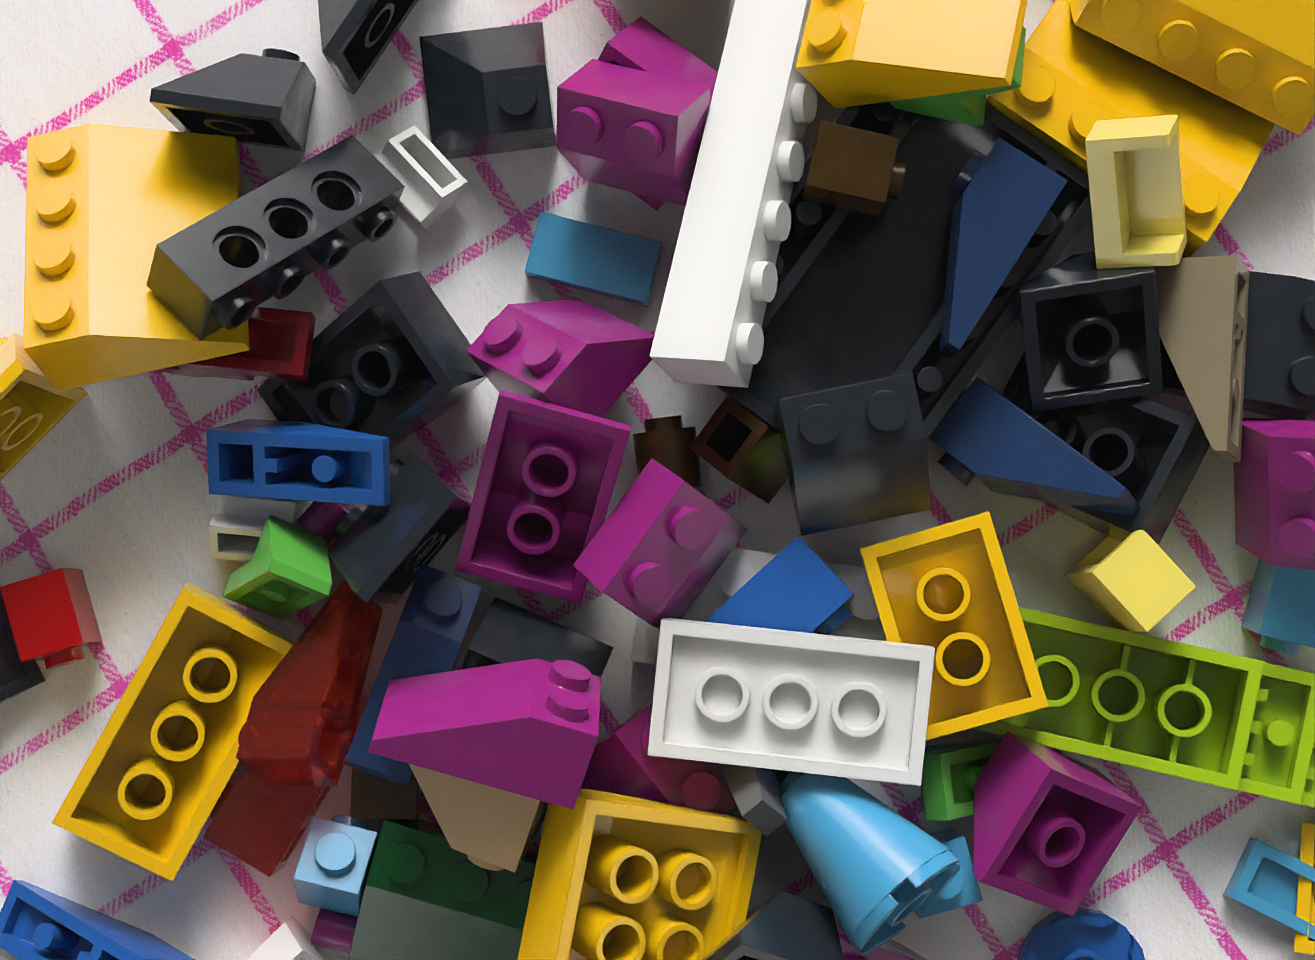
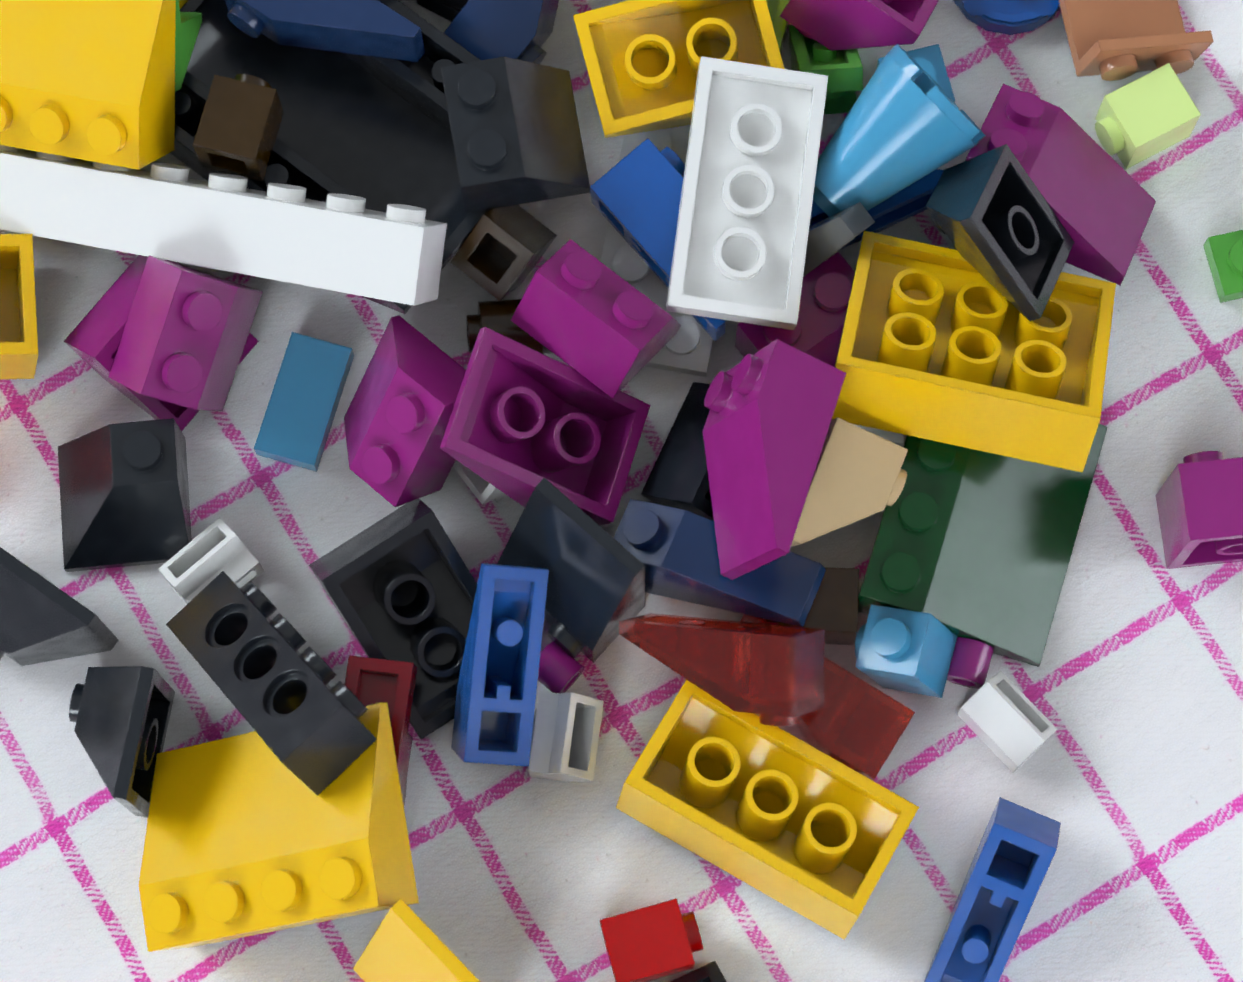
camera: 90 degrees left, 10 degrees down
(285, 573) = (616, 692): bright green slope -> none

